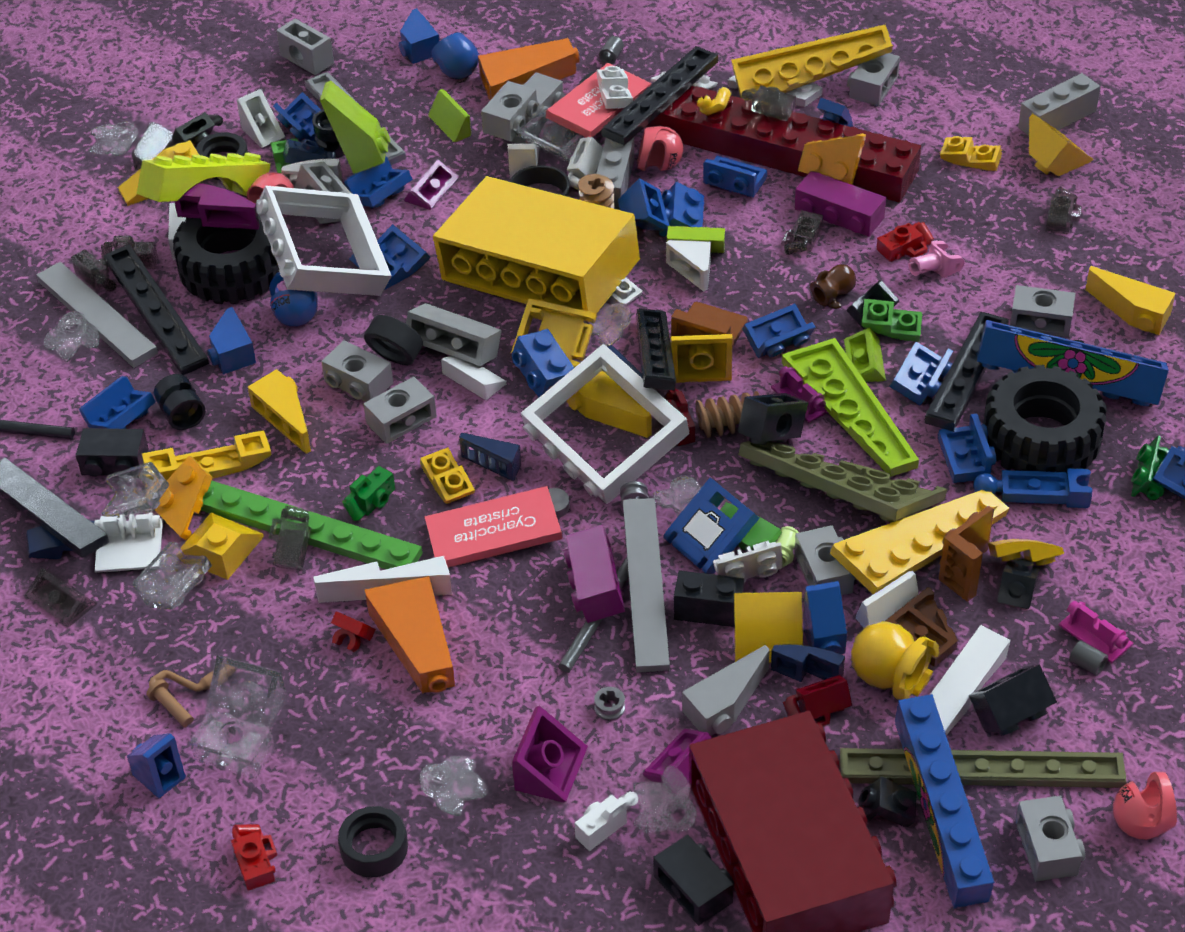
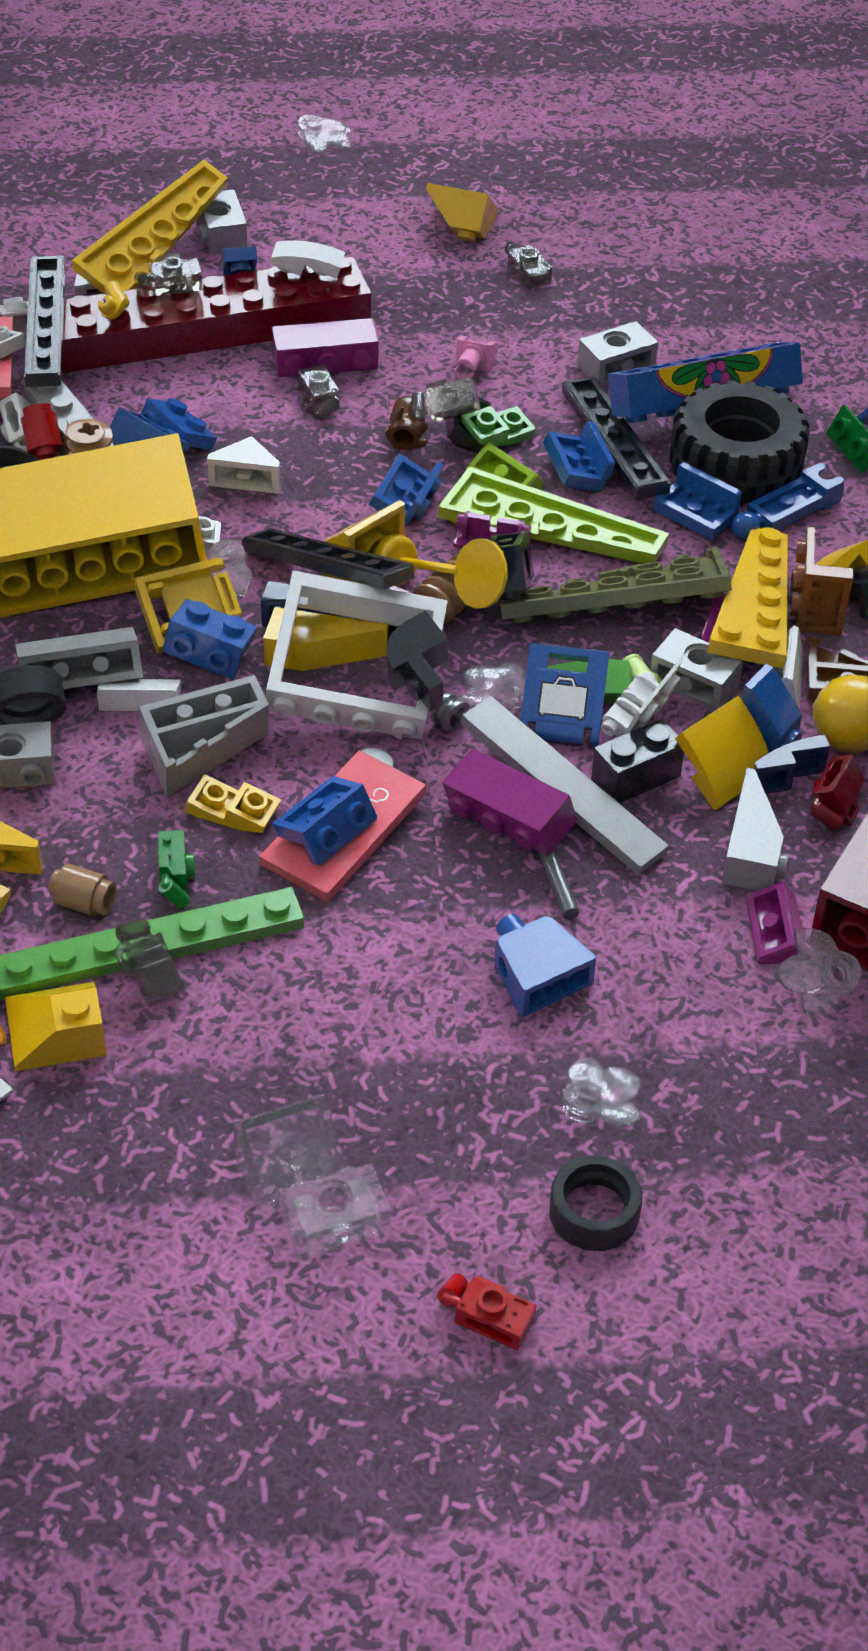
camera: 45 degrees left, 0 degrees up
(157, 764) = (276, 1286): blue slope -> none
(158, 691) = (196, 1219): medium nougat piece -> none
(170, 577) = (52, 1090): clear bracket -> none
(308, 476) = (82, 890): none -> medium nougat brick
(351, 582) = (287, 951): white slope -> none
(351, 628) = (320, 1009): red tile -> none
(400, 410) = (105, 767): light grey brick -> none
(413, 628) = (392, 972): orange slope -> none
(470, 411) = (202, 730): none -> light grey wedge
(475, 517) = (327, 818): none -> blue bracket
(492, 454) = (272, 753): dark blue slope -> none
(502, 683) = (540, 962): none -> torso
(547, 758) = (664, 1006): magenta slope -> none
(582, 164) = (41, 430): none -> red brick
(603, 819) = (783, 1022): white piece -> none
(616, 710) = (658, 908): flat silver bush -> none
(620, 440) = (413, 654): none -> black brick
(659, 148) = (89, 372): coral helmet -> none
(707, 320) = (330, 515): dark orange bracket -> none
(711, 378) = (478, 570): none -> yellow piece
(713, 235) = (204, 446): lime slope -> none
(733, 175) = (190, 370): blue bracket -> none
(833, 157) = (288, 301): light orange wing -> none
(861, 281) = (446, 399): none -> clear smoke piece
(877, 130) = (294, 255): none -> white slope
(905, 241) = (421, 355): red piece -> none
(963, 152) = (377, 254): yellow slope -> none
(1029, 40) = (323, 132): none -> clear plate
(1062, 103) = (427, 165): light grey brick -> none
(1132, 300) = (677, 308): yellow slope -> none

